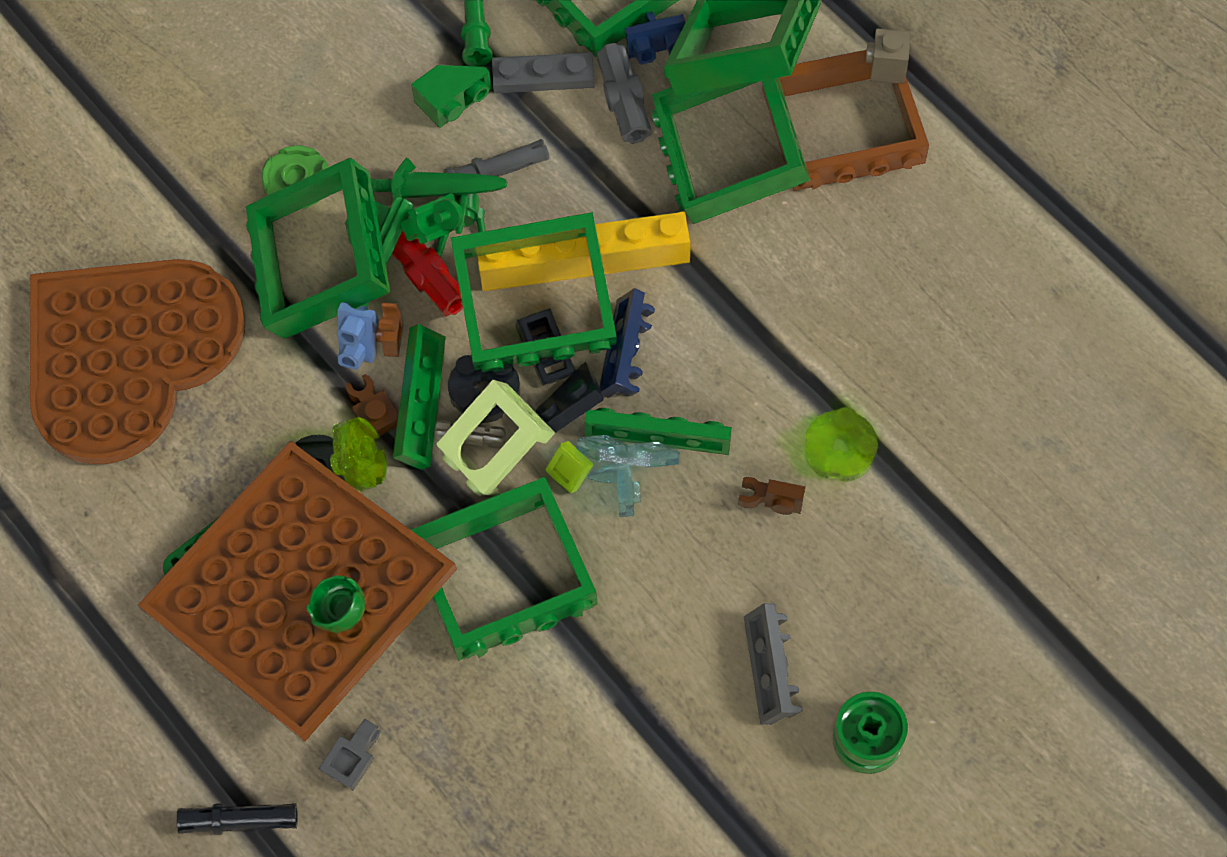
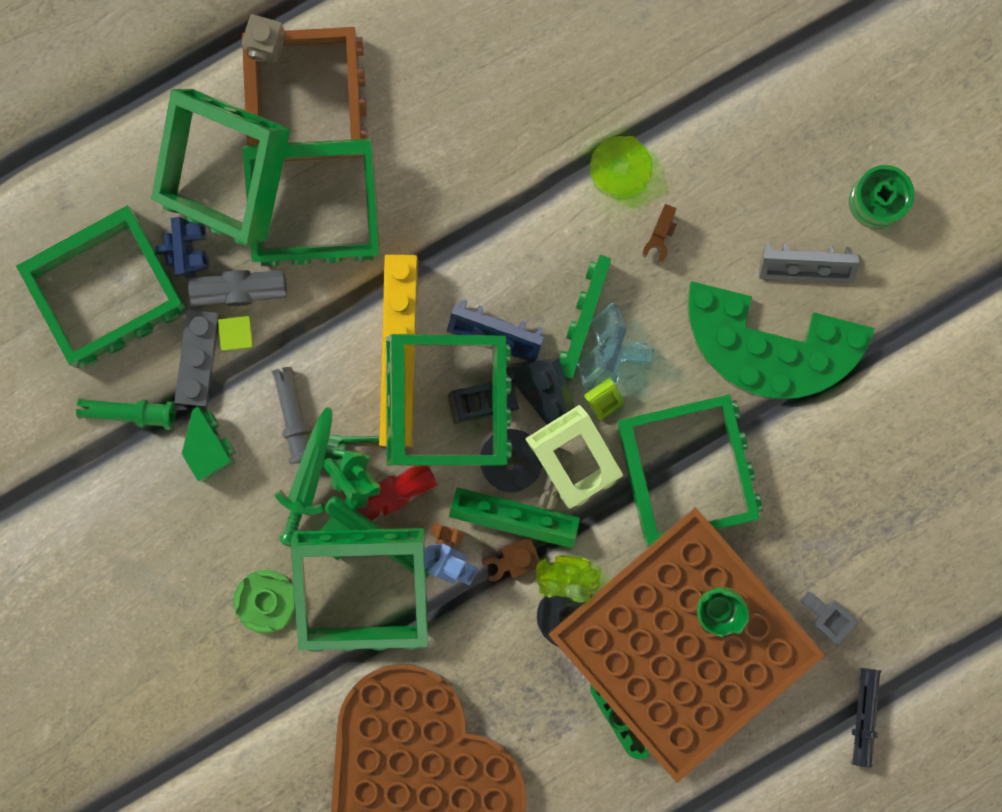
camera: 80 degrees left, 20 degrees up
(575, 102) = (235, 333): none -> lime tile
(645, 643) = (767, 362): none -> green plate

